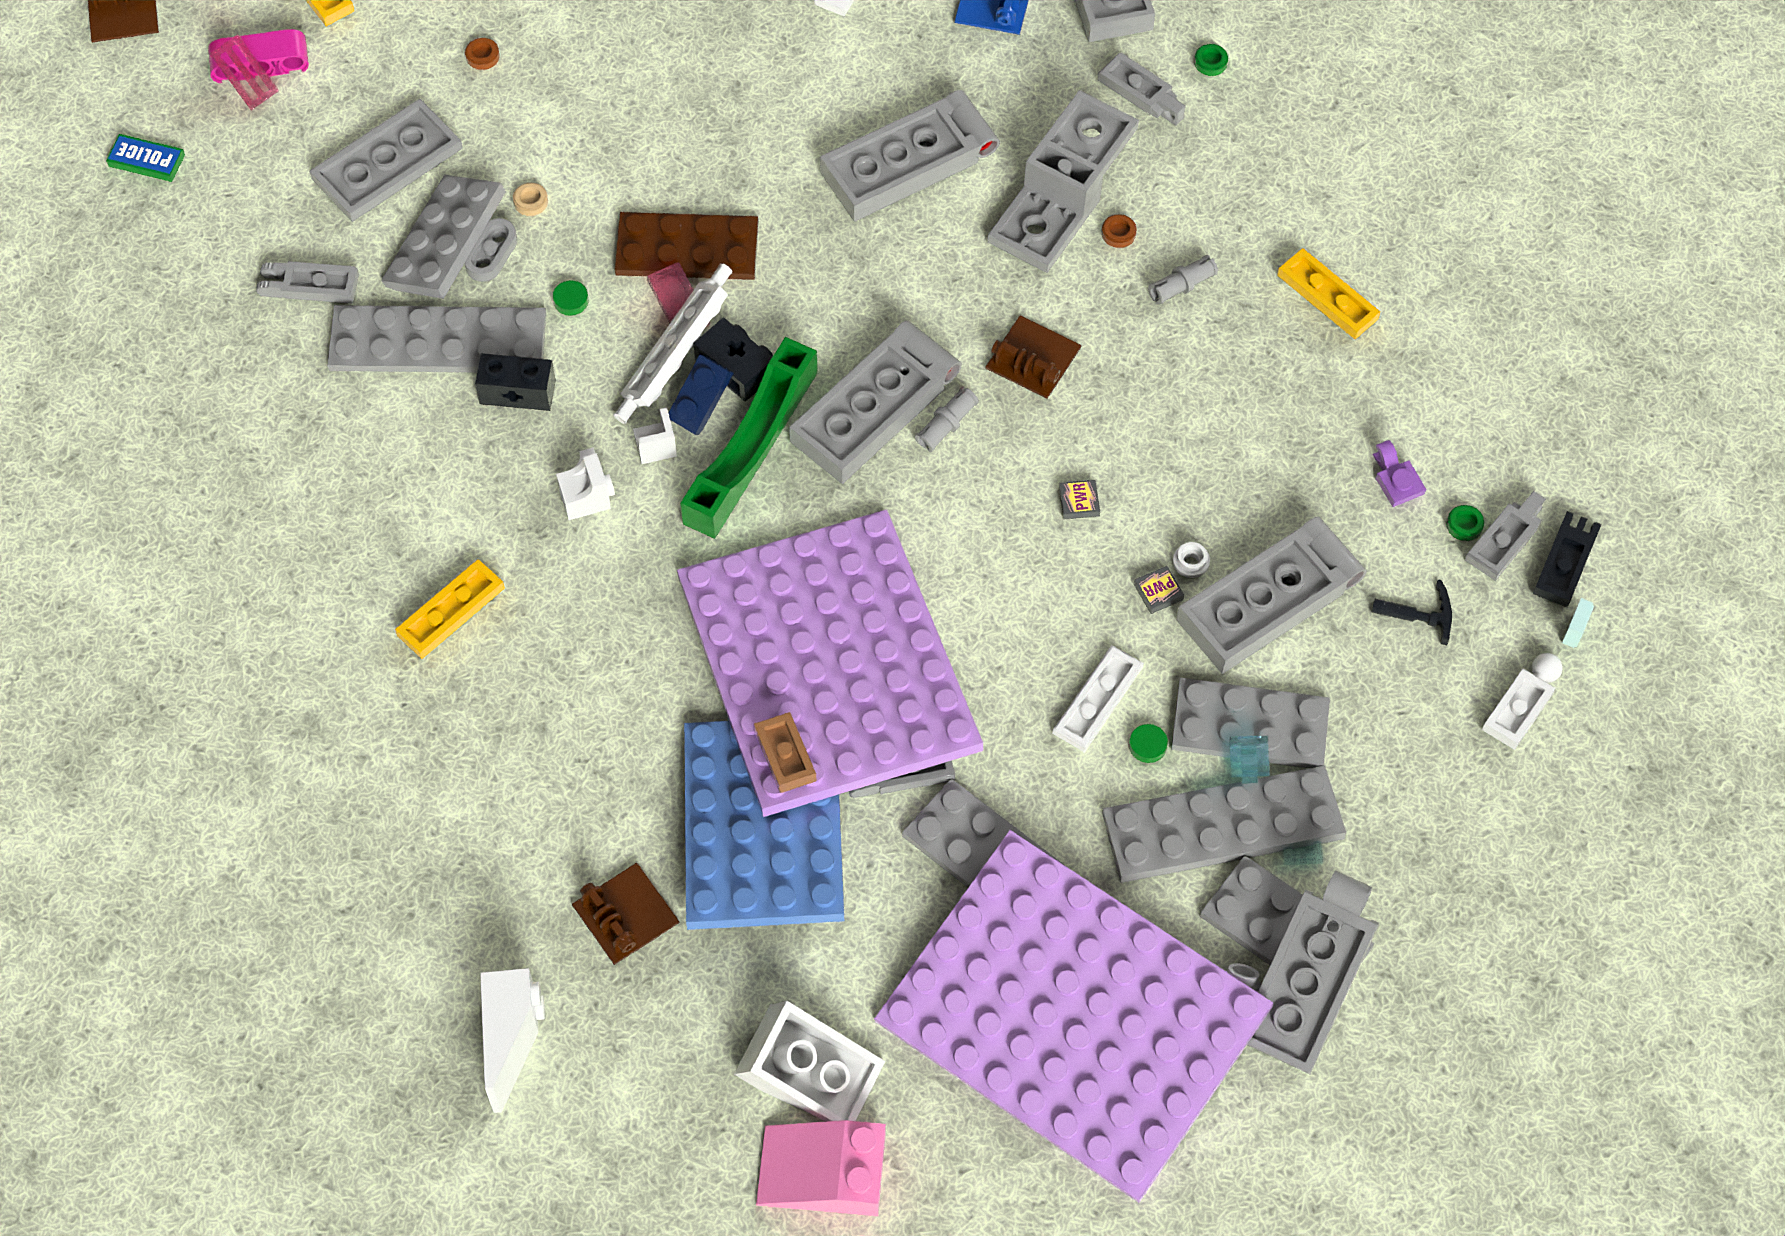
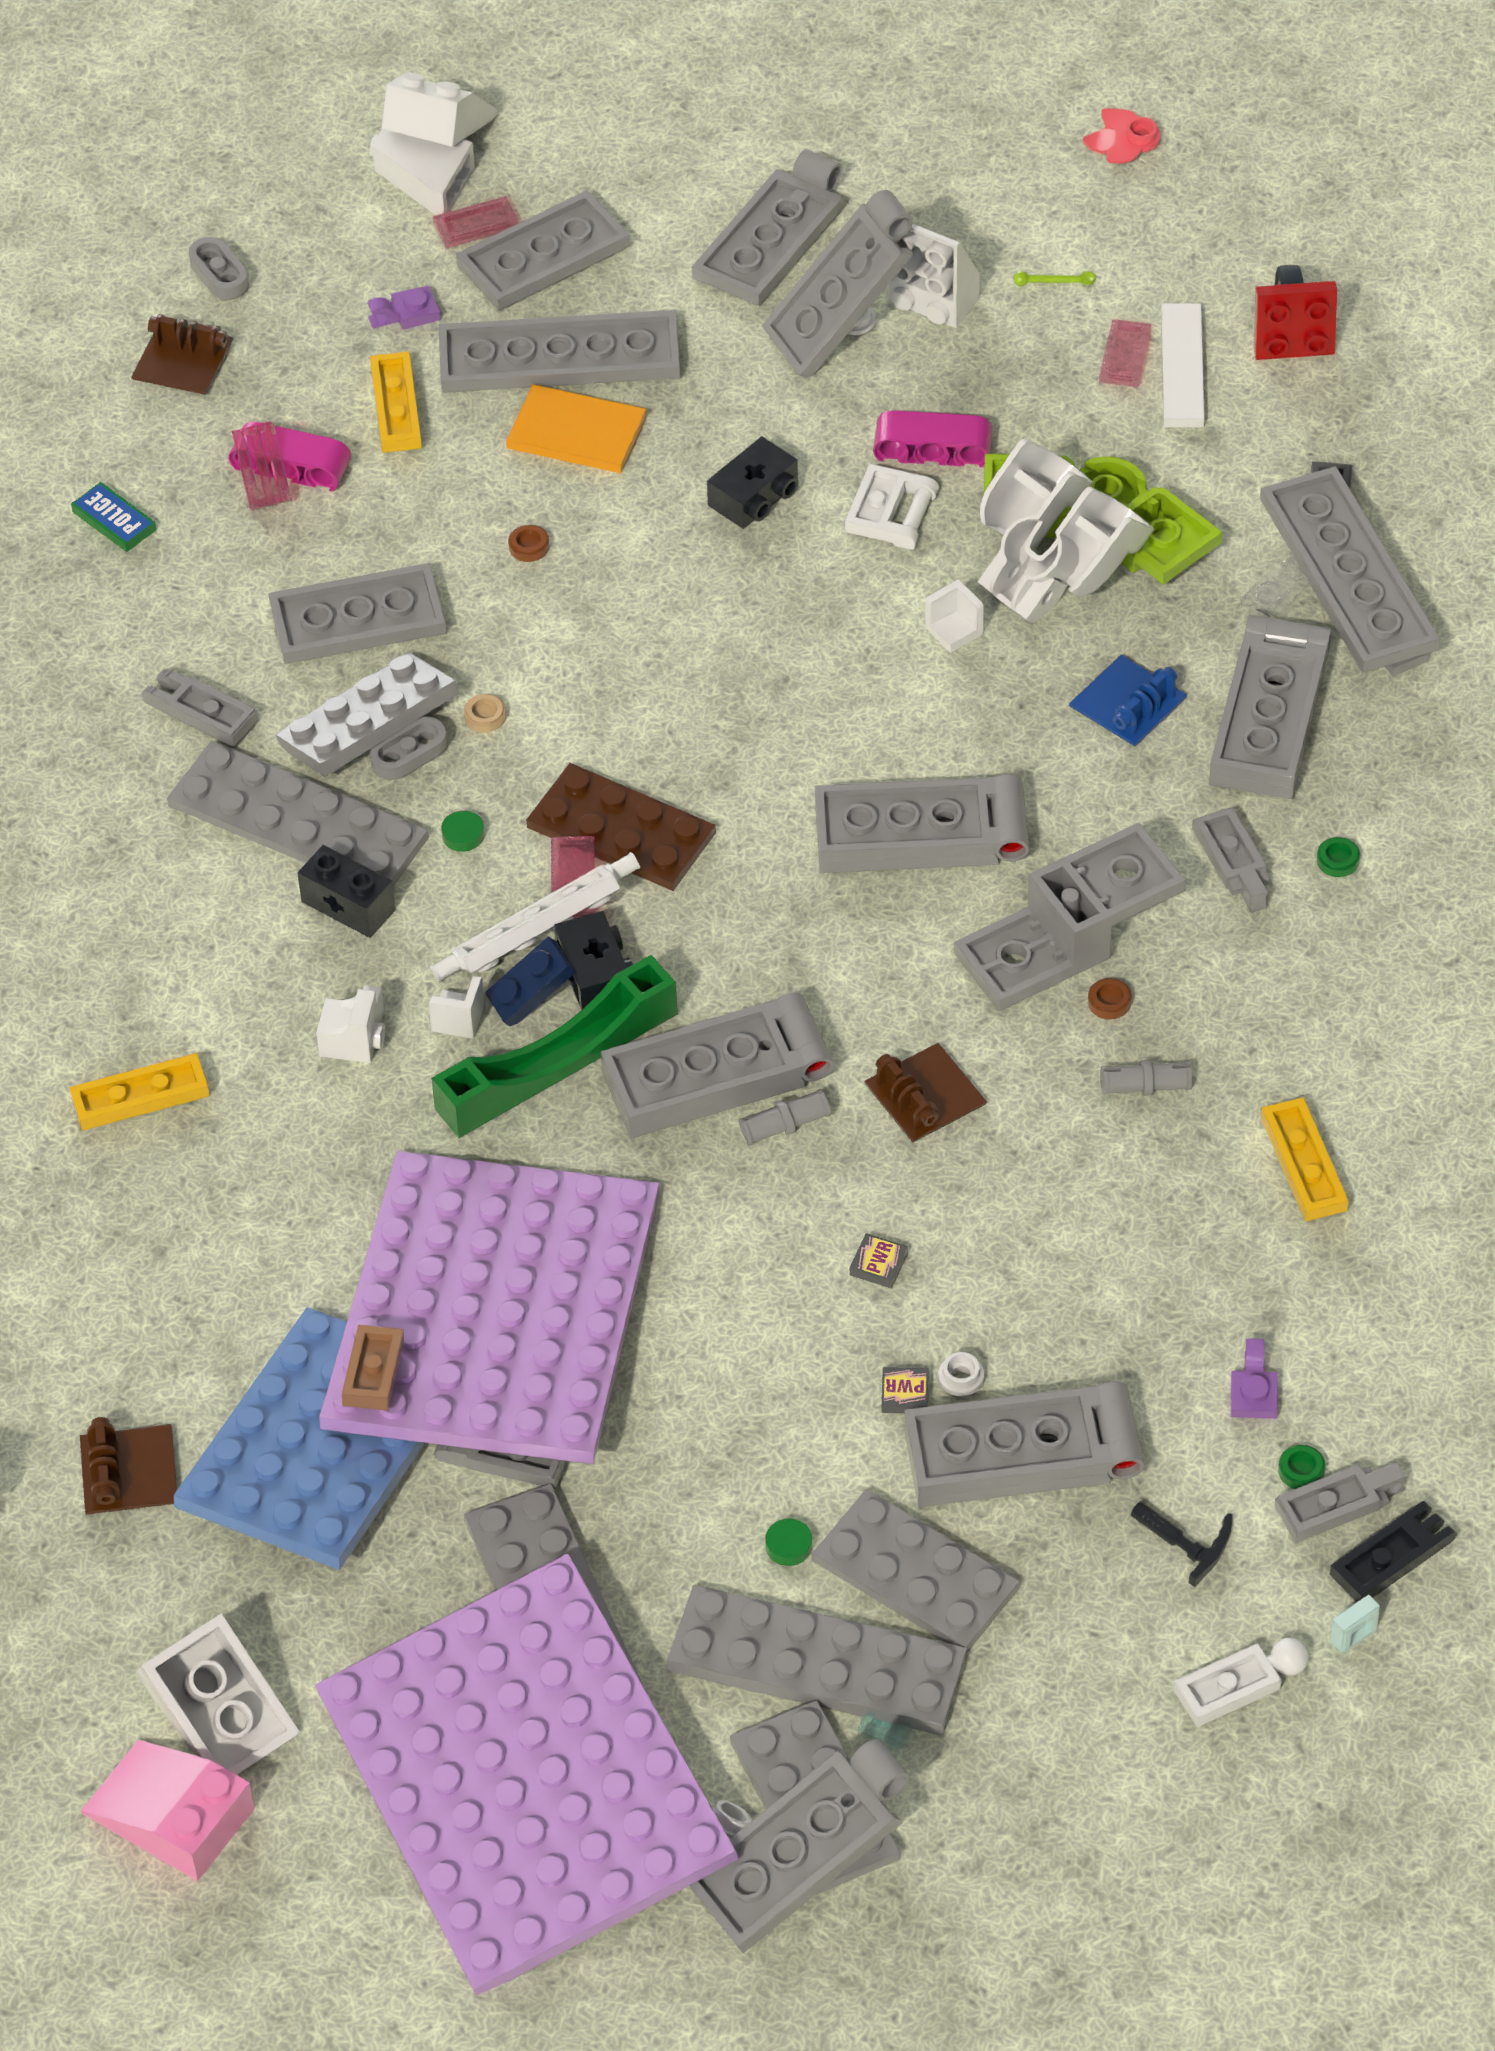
camera: 30 degrees right, 10 degrees down
(1097, 698) = (764, 1472): white tile -> none
(1249, 757) = (885, 1601): clear light blue tile -> none

